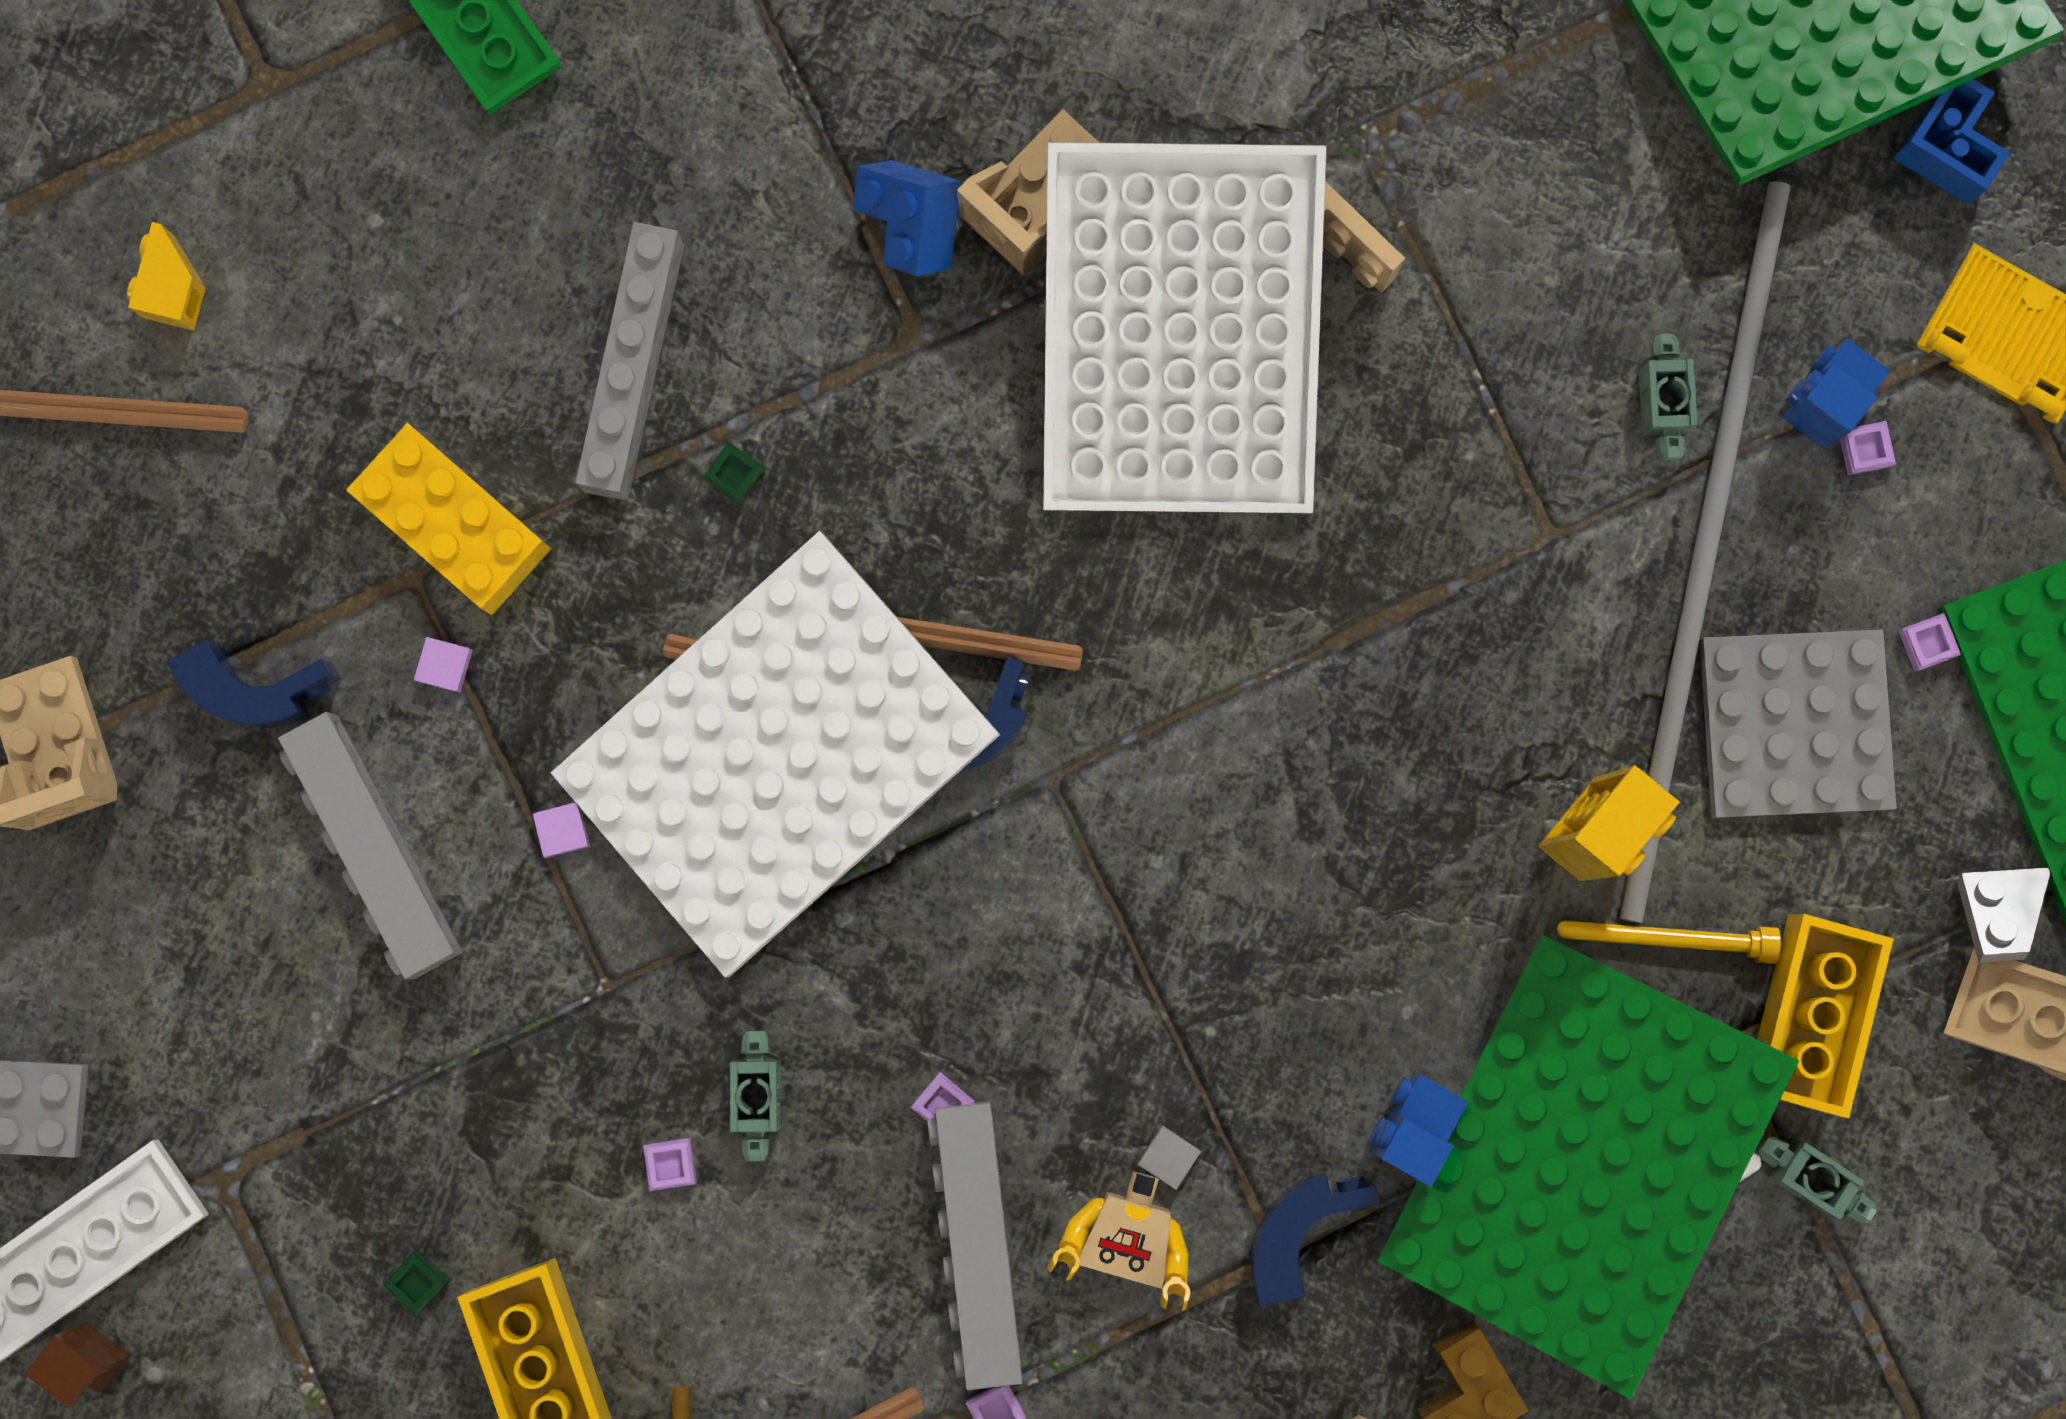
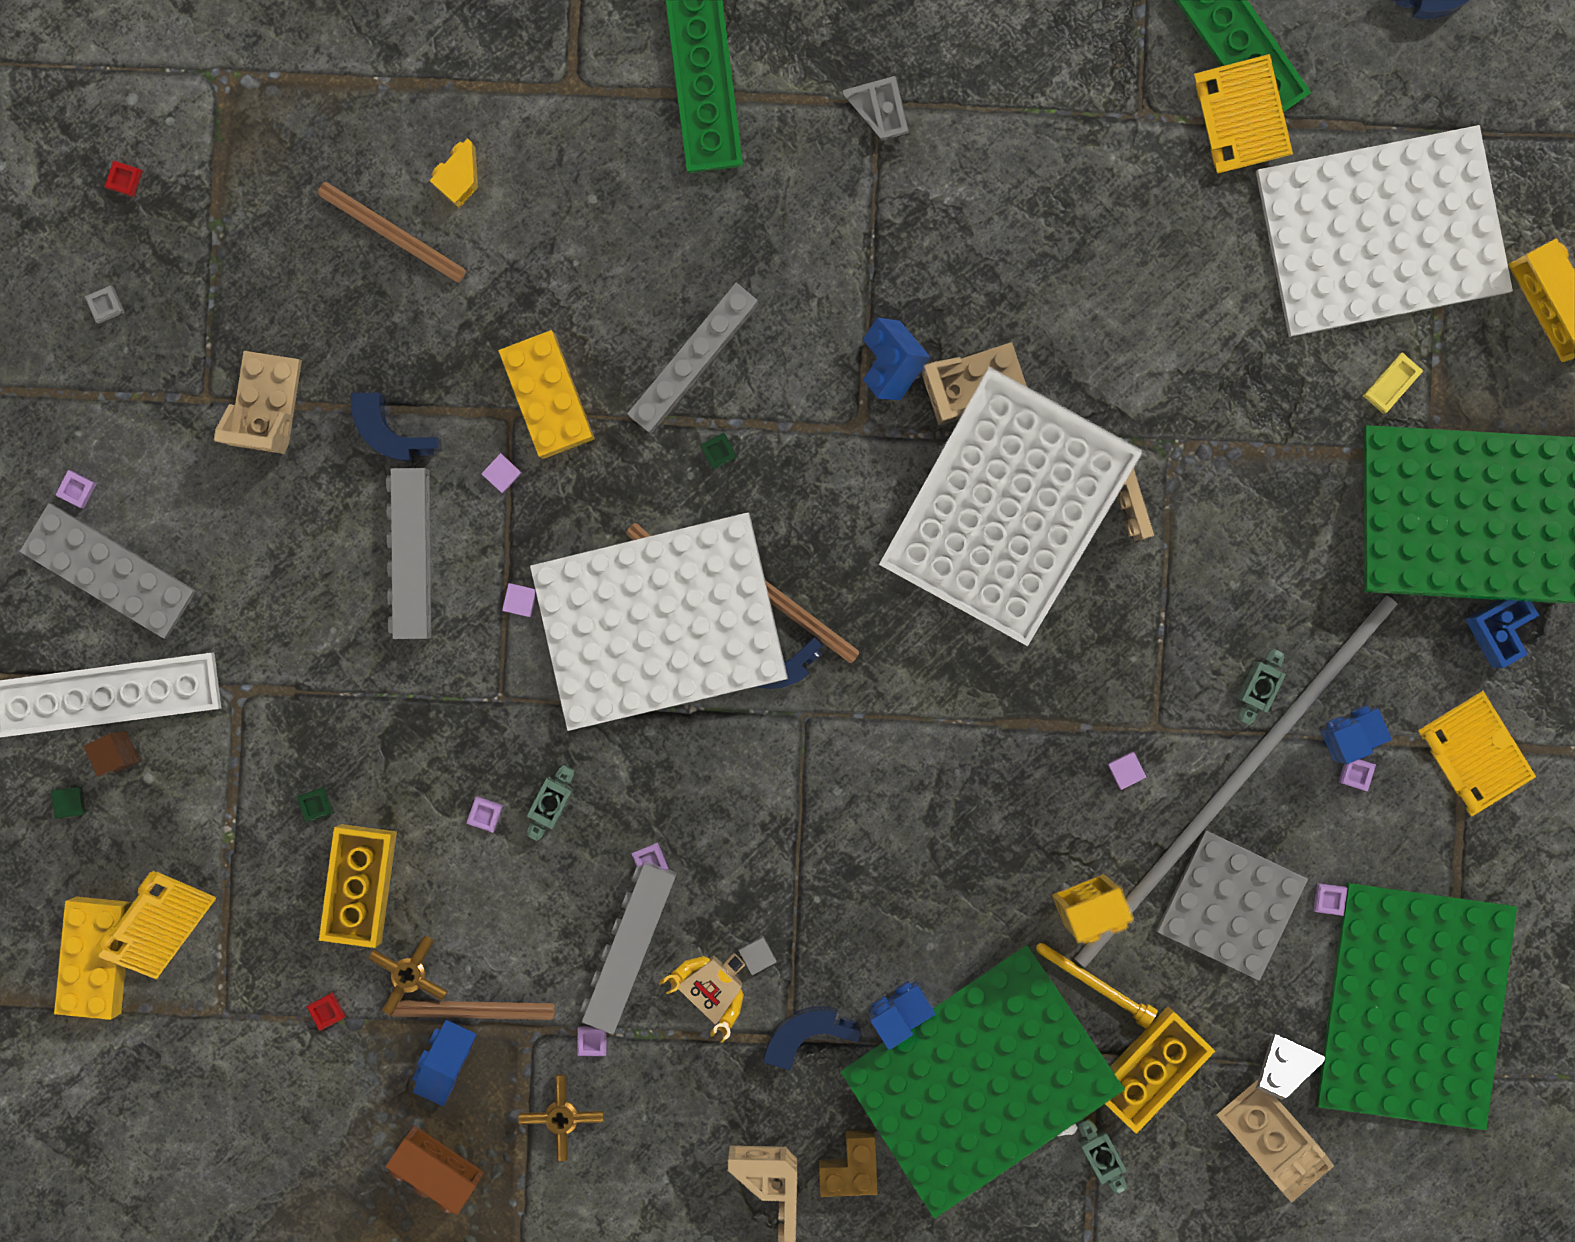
camera: 30 degrees right, 5 degrees up
(1546, 614) = (1126, 770): none -> lavender tile

